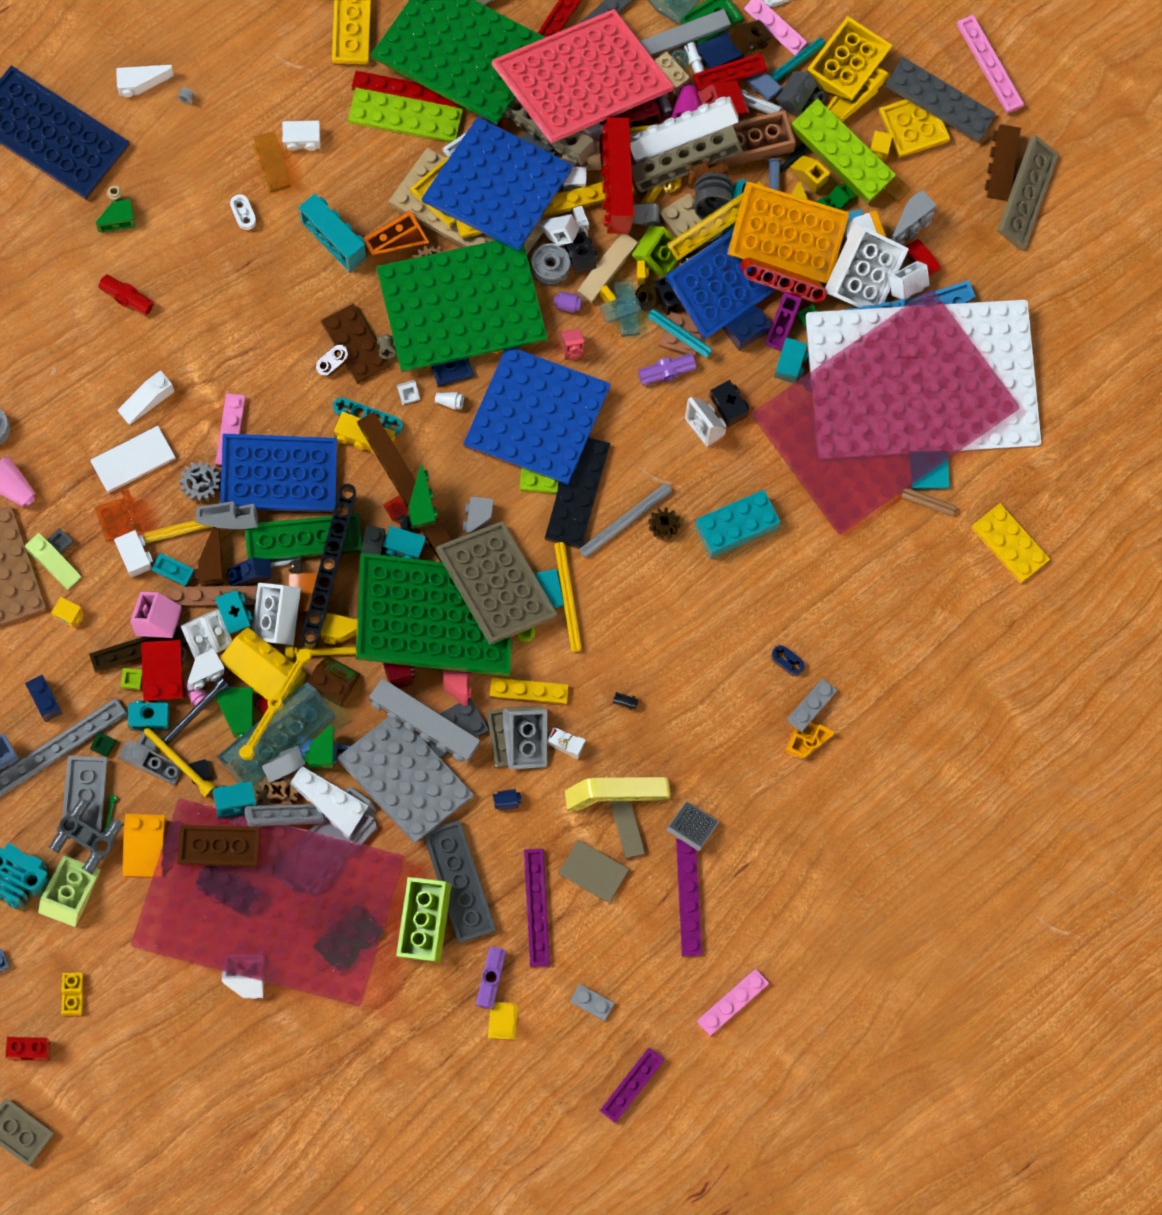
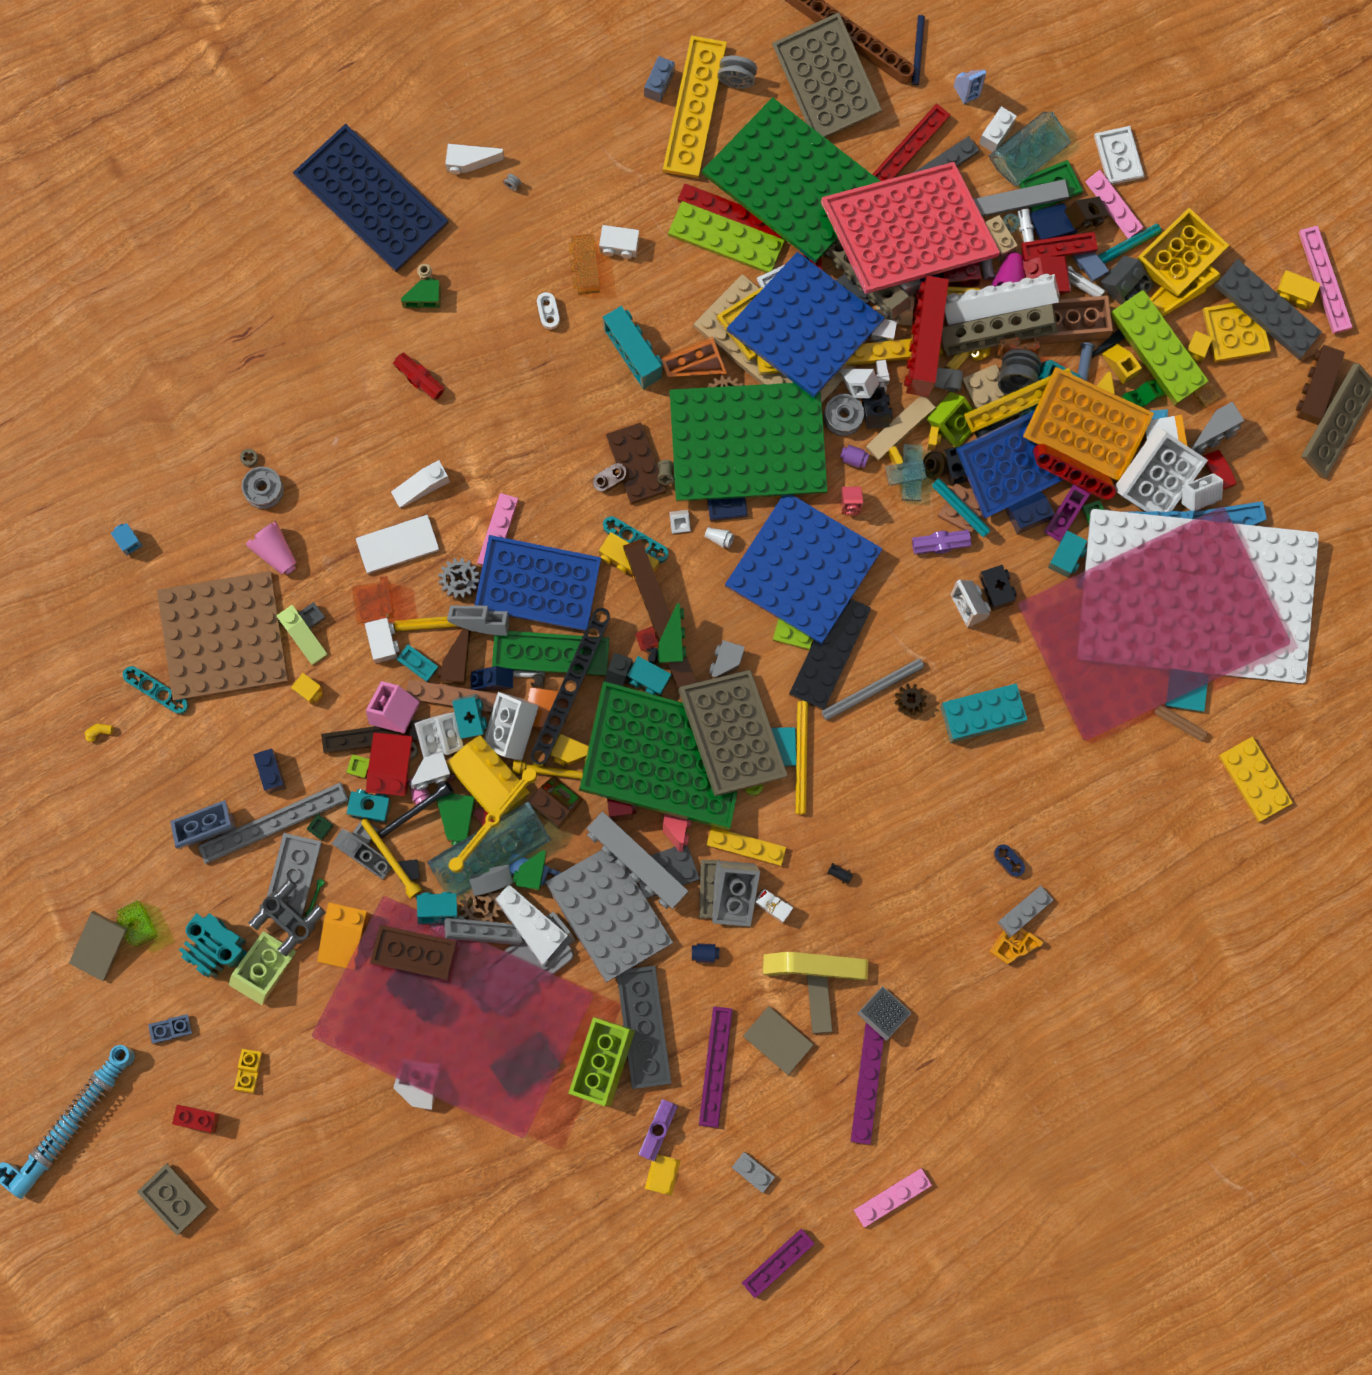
camera: 15 degrees right, 5 degrees up
(965, 77) = (1298, 289): none -> yellow brick

